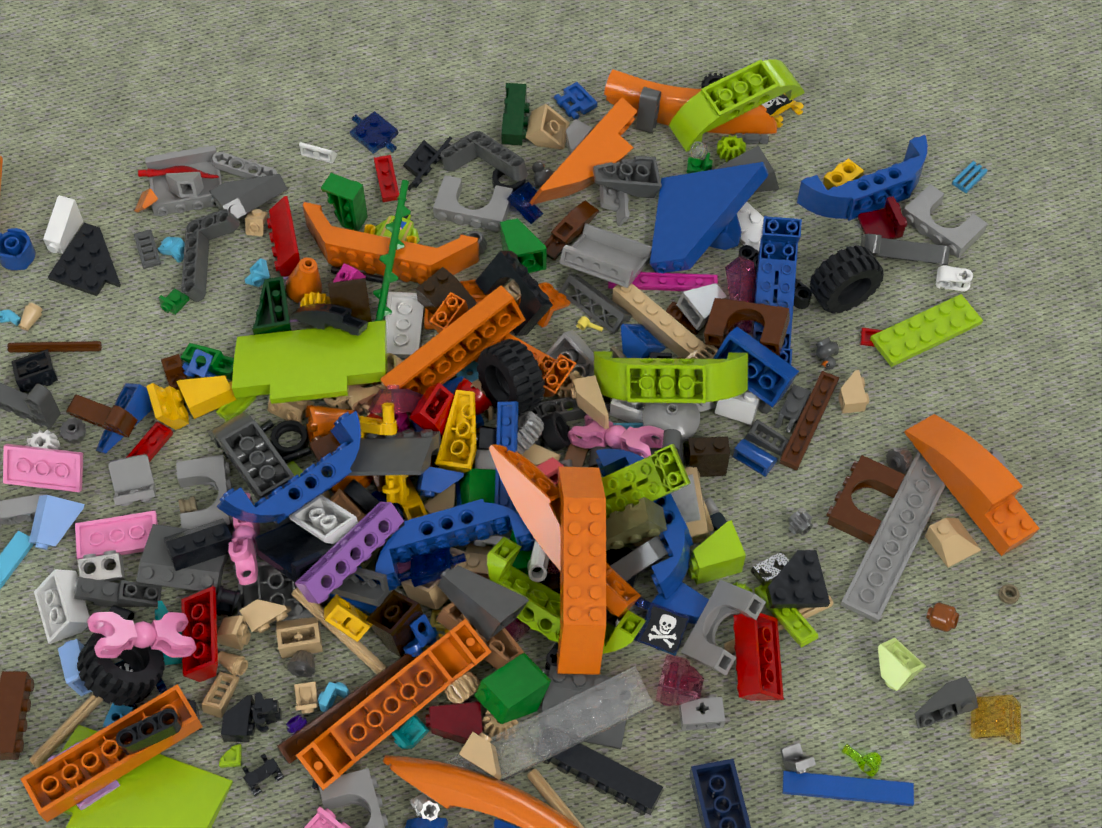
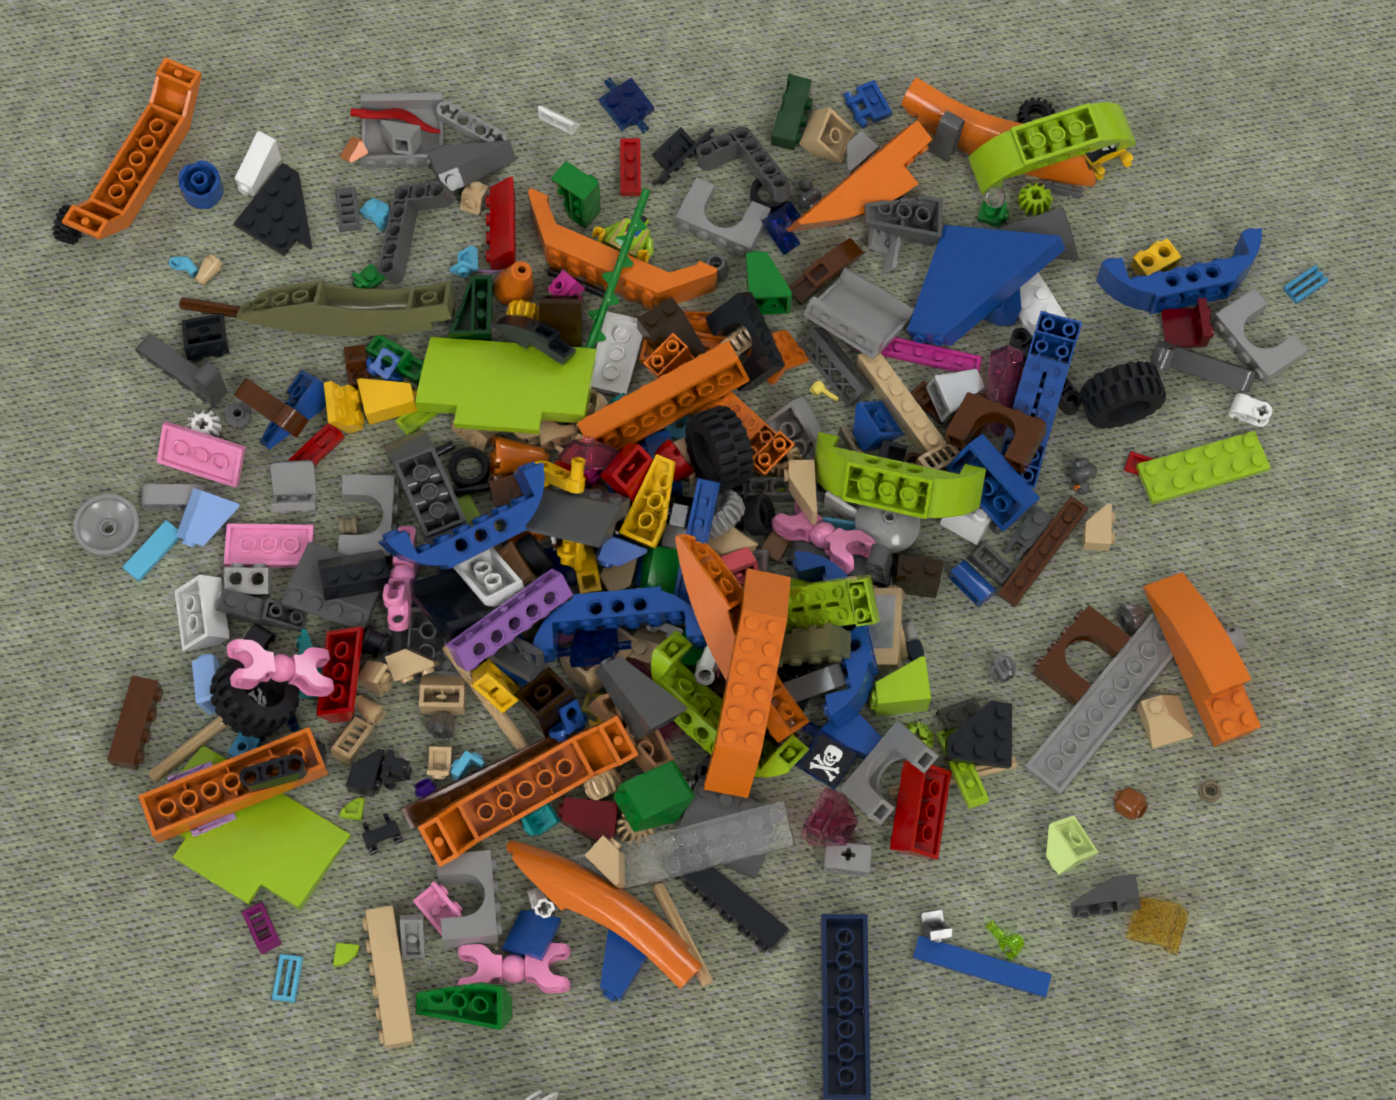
camera: 10 degrees right, 10 degrees up
(161, 328) = (350, 311): none -> olive slope

